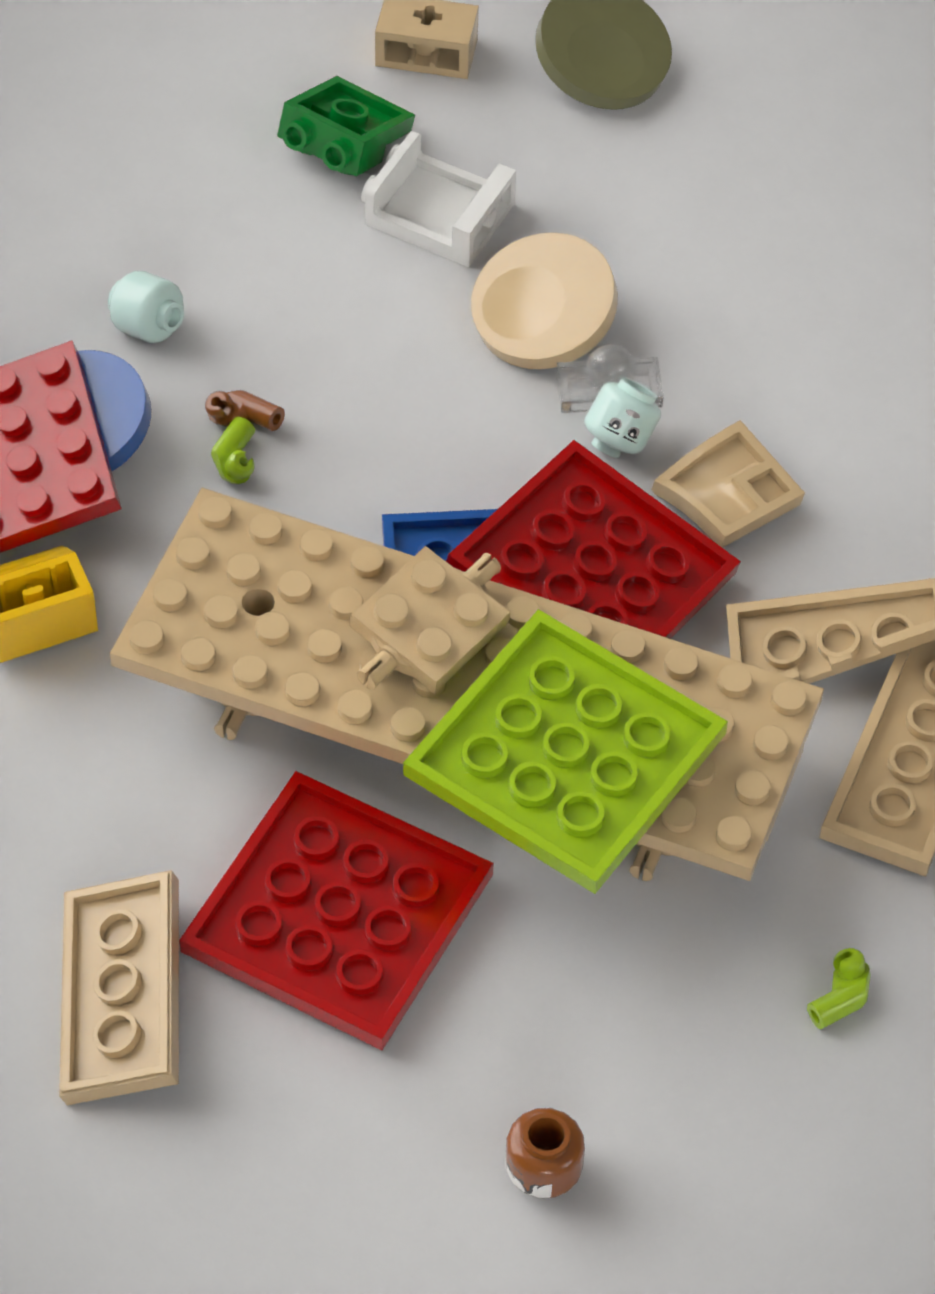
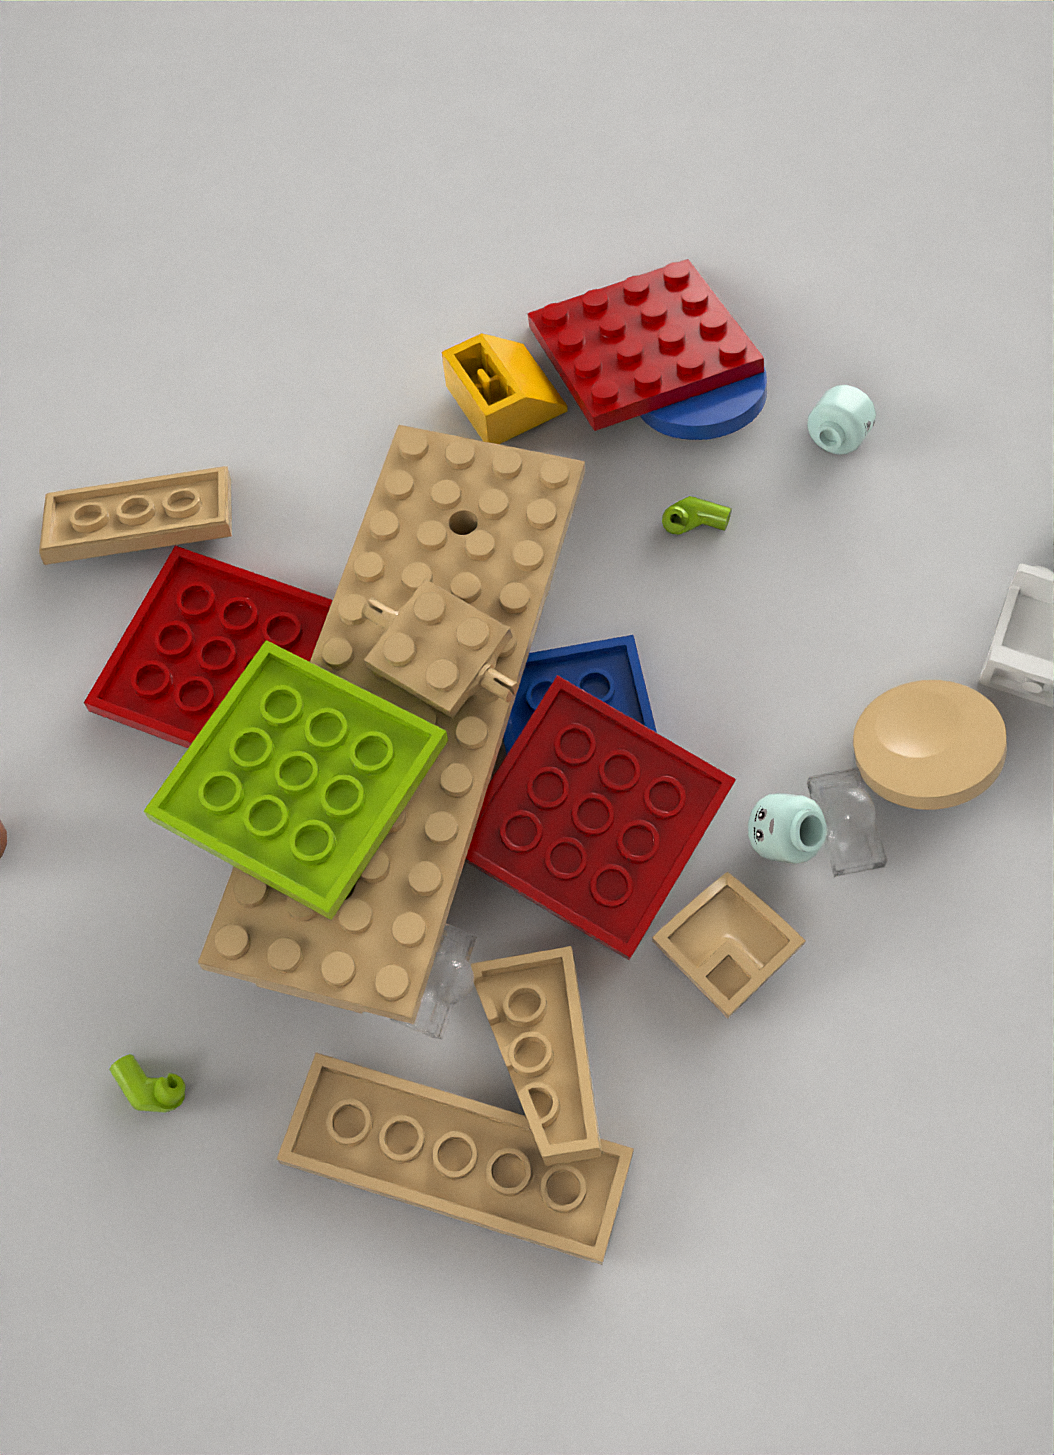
camera: 90 degrees right, 10 degrees up
(224, 407) = (747, 512): dark orange arm -> none

